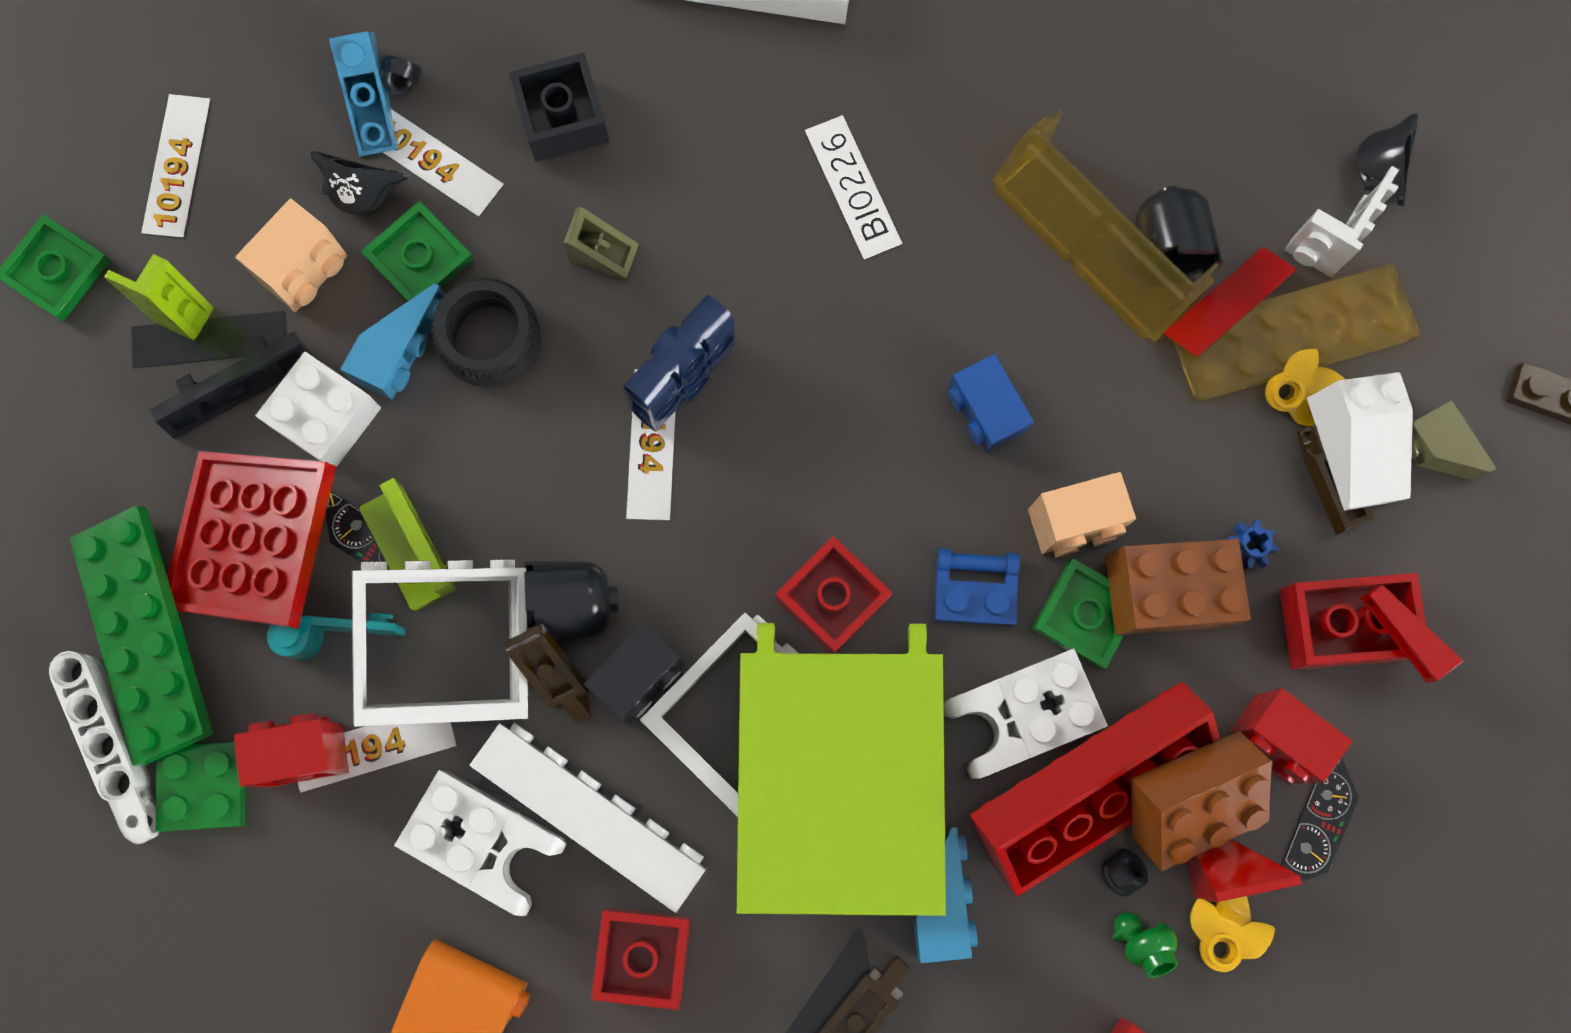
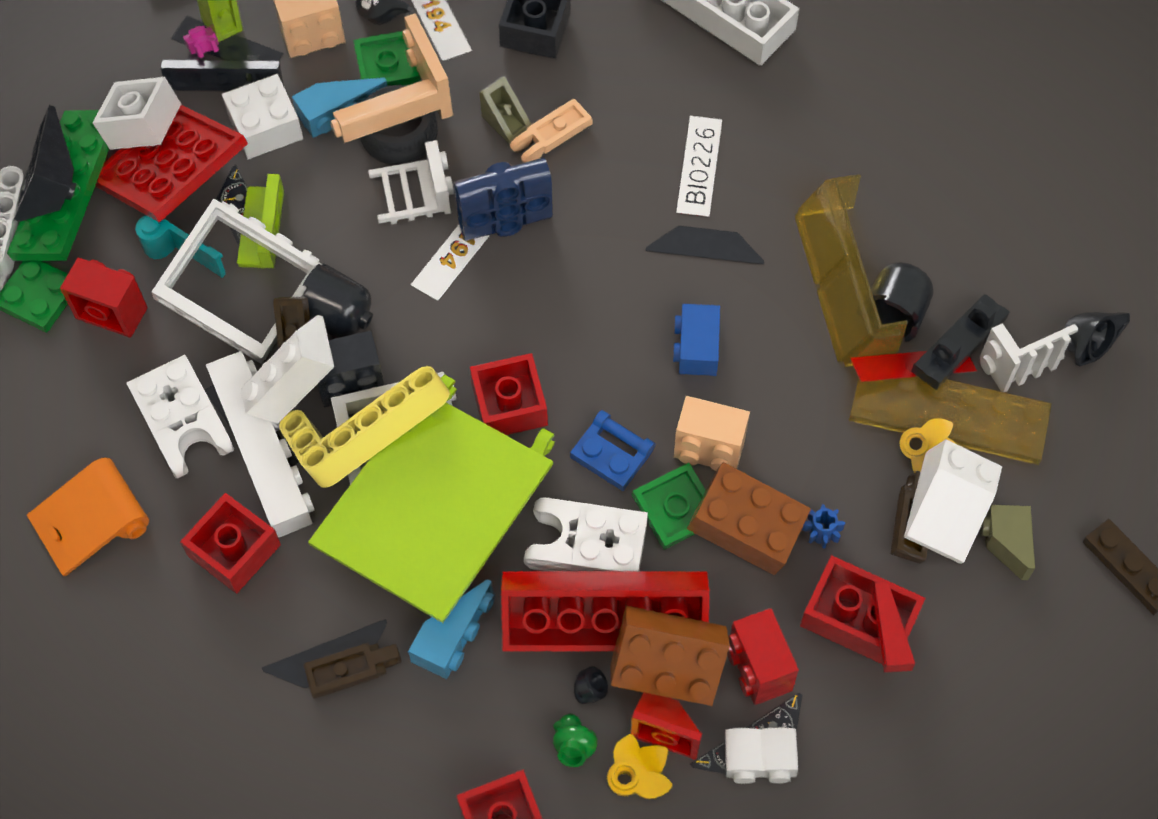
camera: 35 degrees right, 15 degrees down
(116, 639) = (48, 173): none -> black wedge
(169, 500) = (137, 113): none -> white brick
(178, 355) = (201, 40): none -> dark pink plate
(387, 745) = (168, 335): white sticker -> none
(485, 308) = (404, 103): none -> light nougat piece
(573, 380) = (433, 184): none -> white plate
(583, 727) = (289, 373): none -> white slope
(667, 236) = (552, 130): none -> light nougat hinge
(707, 748) = (368, 431): none -> light yellow beam
(919, 280) = (706, 244): none -> black sticker
(1263, 246) = (959, 342): none -> black hinge
(1345, 840) = (761, 753): none -> white brick

